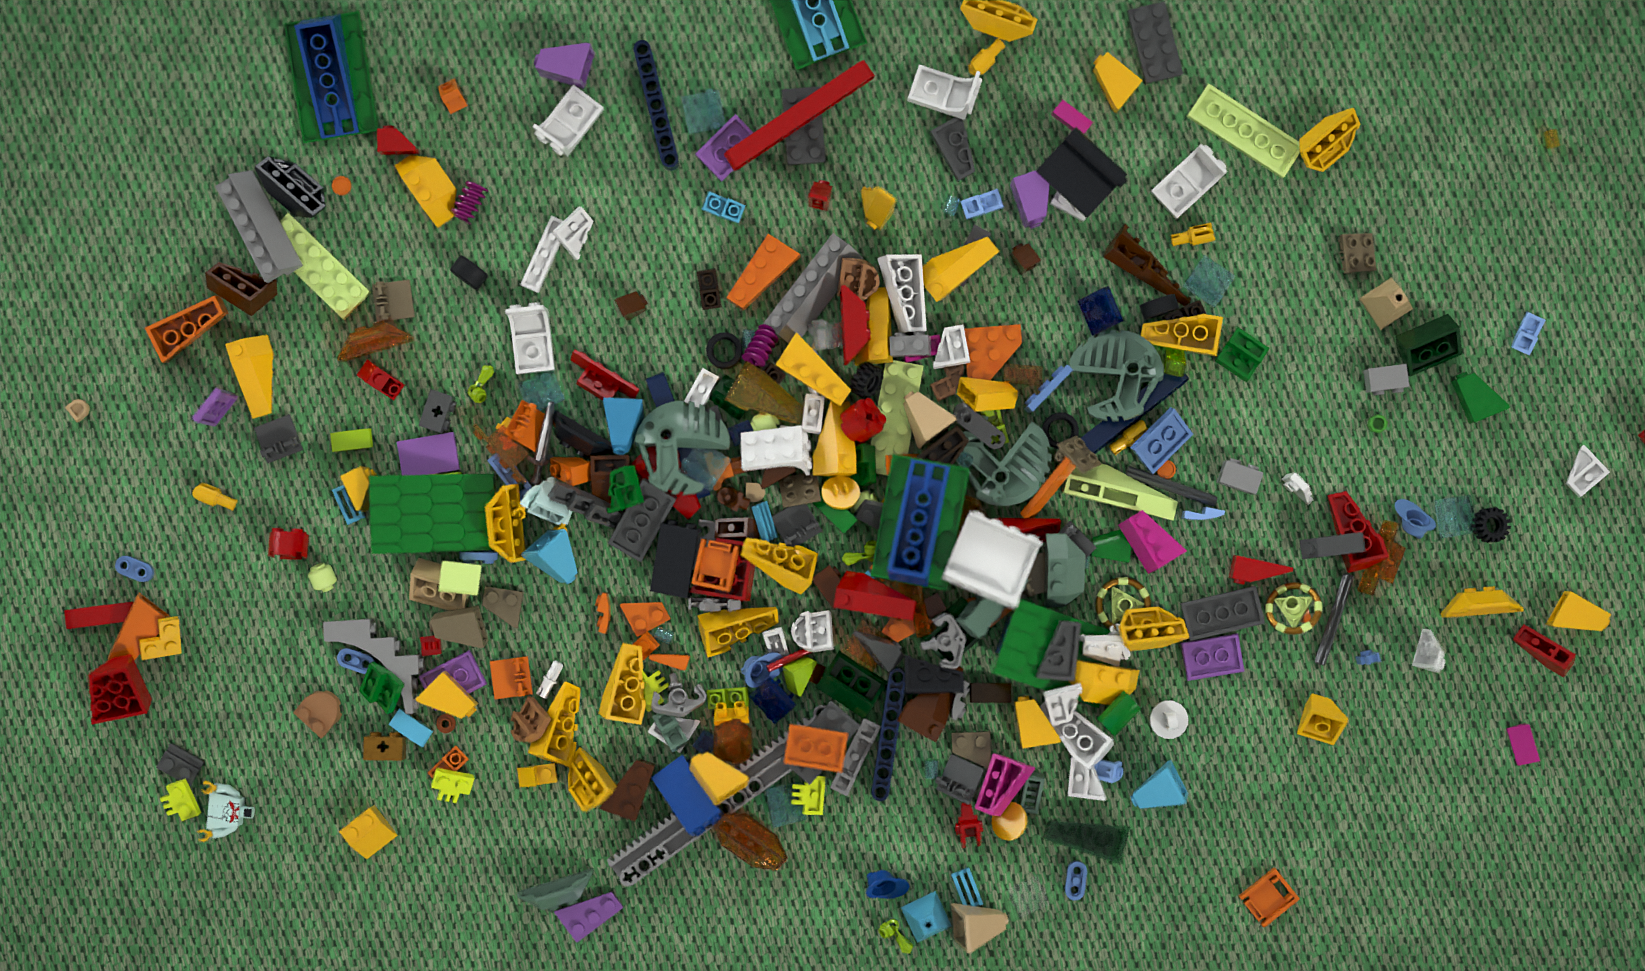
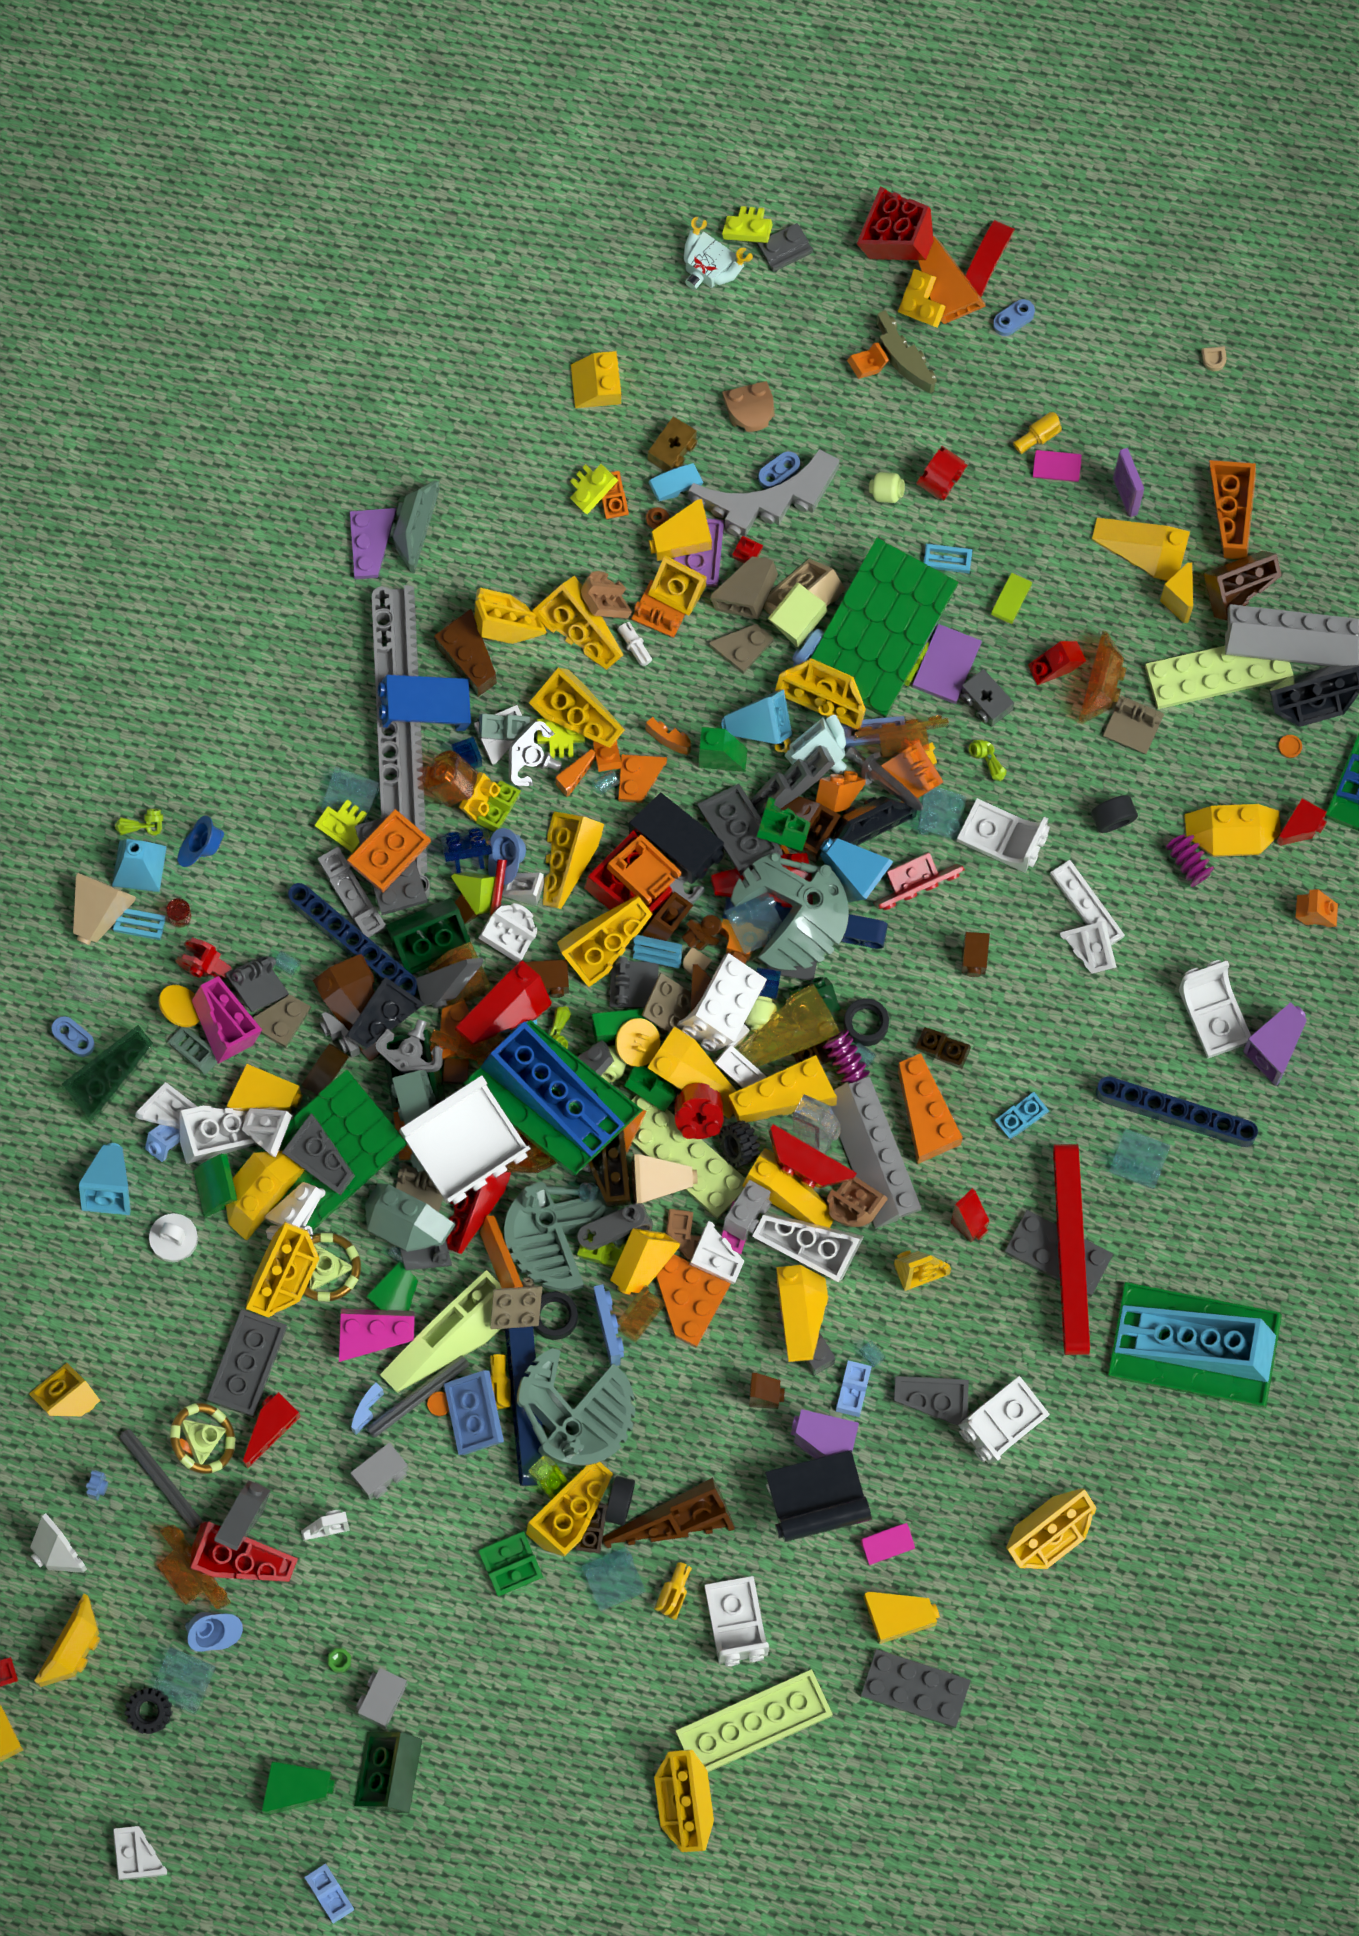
camera: 115 degrees right, 15 degrees down
(216, 623) = (904, 359): none -> olive slope
(231, 469) = (1057, 466): none -> dark pink slope
(233, 649) = (868, 362): none -> orange bracket
(276, 322) = (1178, 593): none -> yellow slope
(278, 439) = (1059, 529): dark grey hinge -> none
(357, 486) = (960, 569): yellow slope -> none
(381, 687) = (736, 477): green slope -> none
(490, 675) = (677, 585): none -> yellow slope
(537, 775) = (545, 575): yellow slope -> none
(593, 568) = (721, 750): none -> green slope
(702, 388) = (840, 975): white plate -> none
(713, 151) = (1094, 1159): medium lavender tile -> none
(714, 604) = (605, 845): light grey piece -> none
(717, 777) = (423, 738): yellow slope -> none
(750, 841) = (337, 737): clear orange wedge -> none
(944, 866) = (176, 908): none -> clear red wheel
(985, 58) = (1012, 1489): yellow arm -> none
(1100, 310) = (656, 1436): clear blue plate -> none
(1212, 657) = (207, 1325): medium lavender tile -> none
(1357, 252) = (539, 1760): dark tan hinge -> none
(1386, 303) = (467, 1767): tan slope -> none

